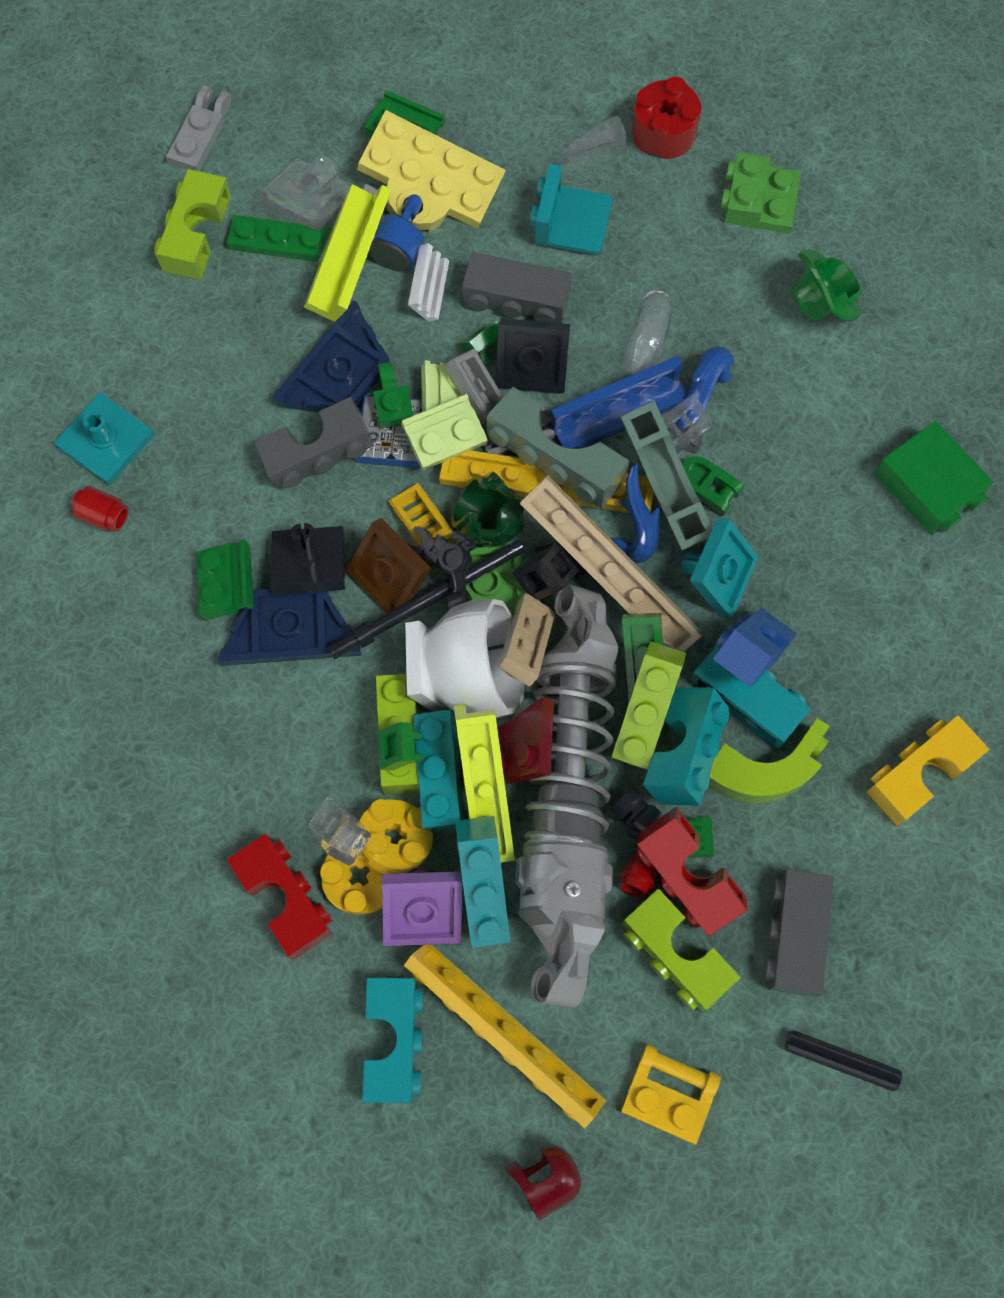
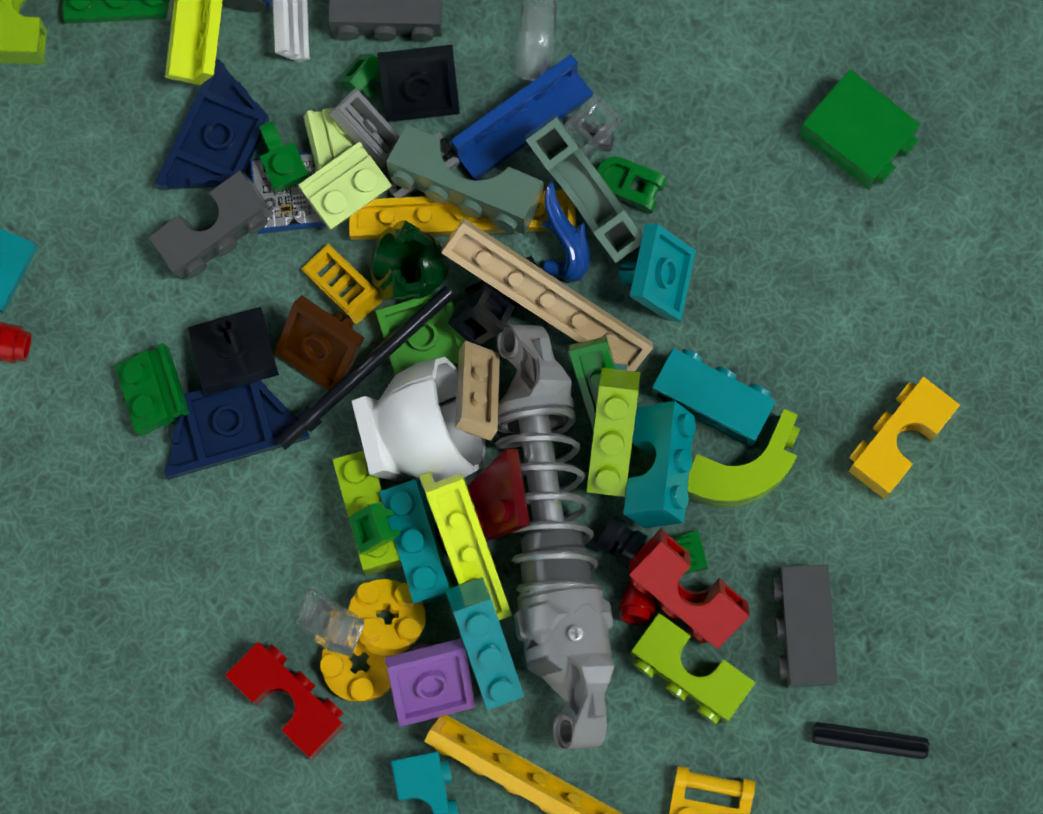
camera: 10 degrees left, 5 degrees up
(451, 557) = (383, 321): black piece -> none
(712, 367) = (610, 54): blue piece -> none
(753, 645) = (706, 349): blue arch -> none

